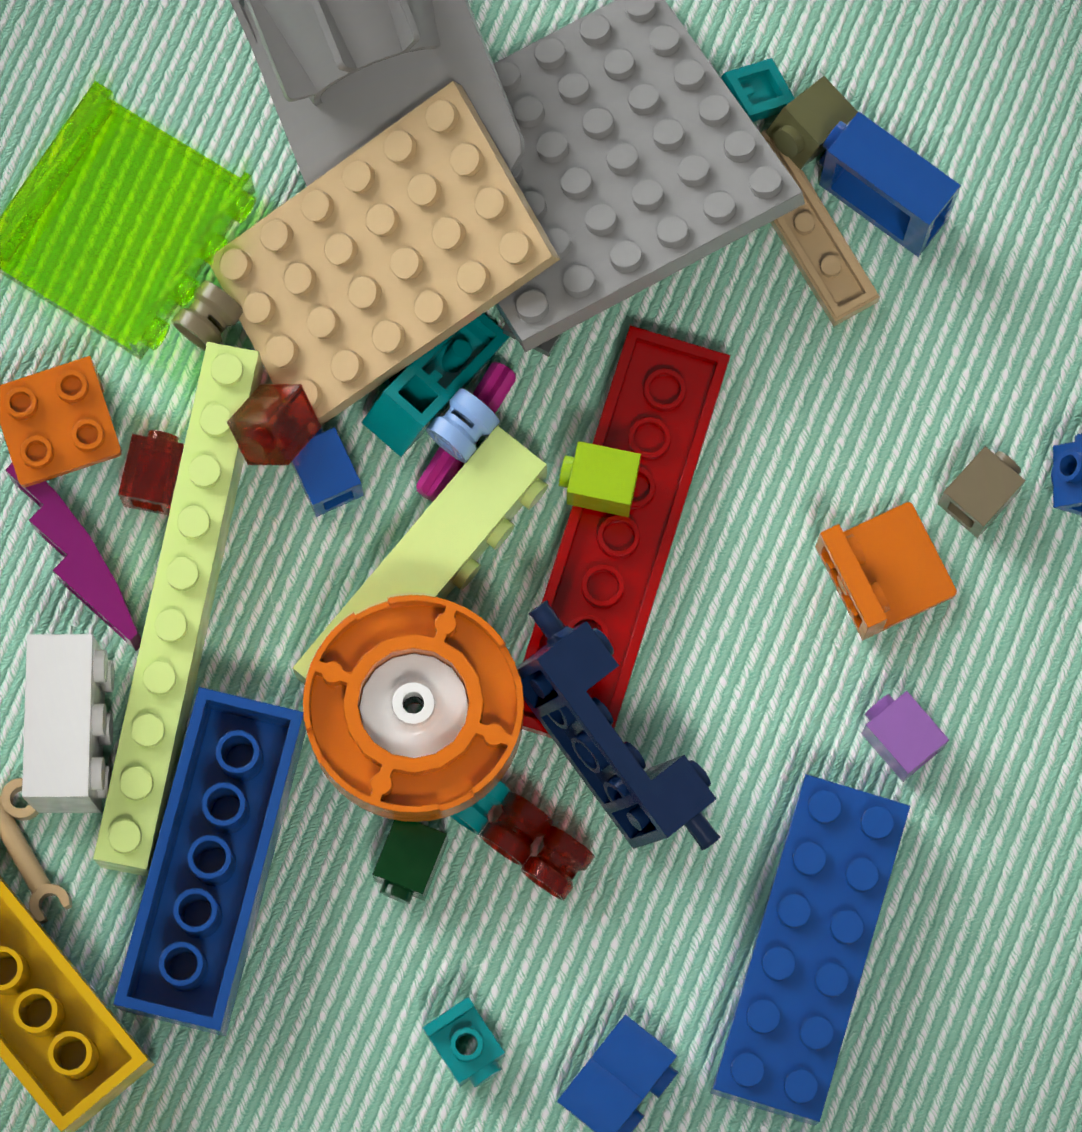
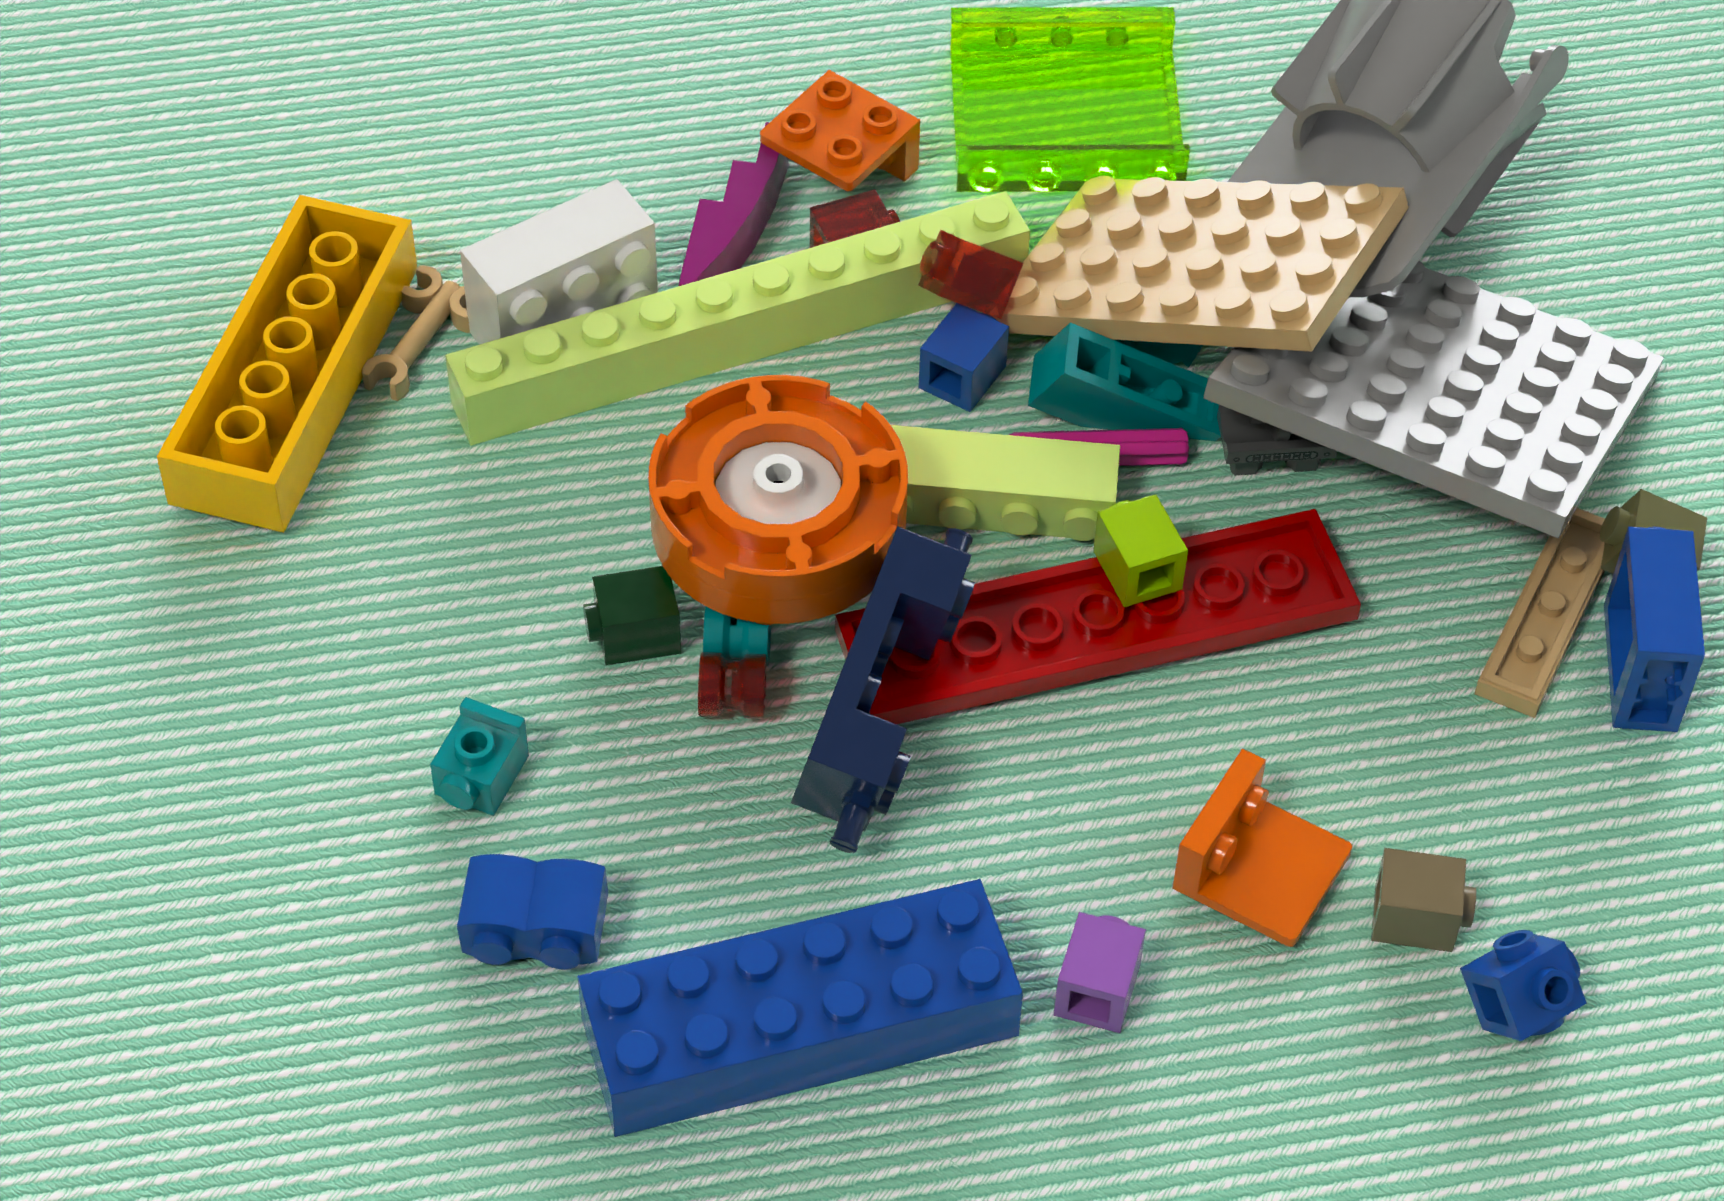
camera: 55 degrees right, 25 degrees down
(207, 315) = (1048, 197): dark tan wheel -> none
(211, 862) = (499, 455): blue brick -> none
(462, 425) = (1096, 415): light blue wheel -> none
(557, 863) = (738, 743): clear red wheel -> none
(759, 89) = (1626, 473): teal bracket -> none

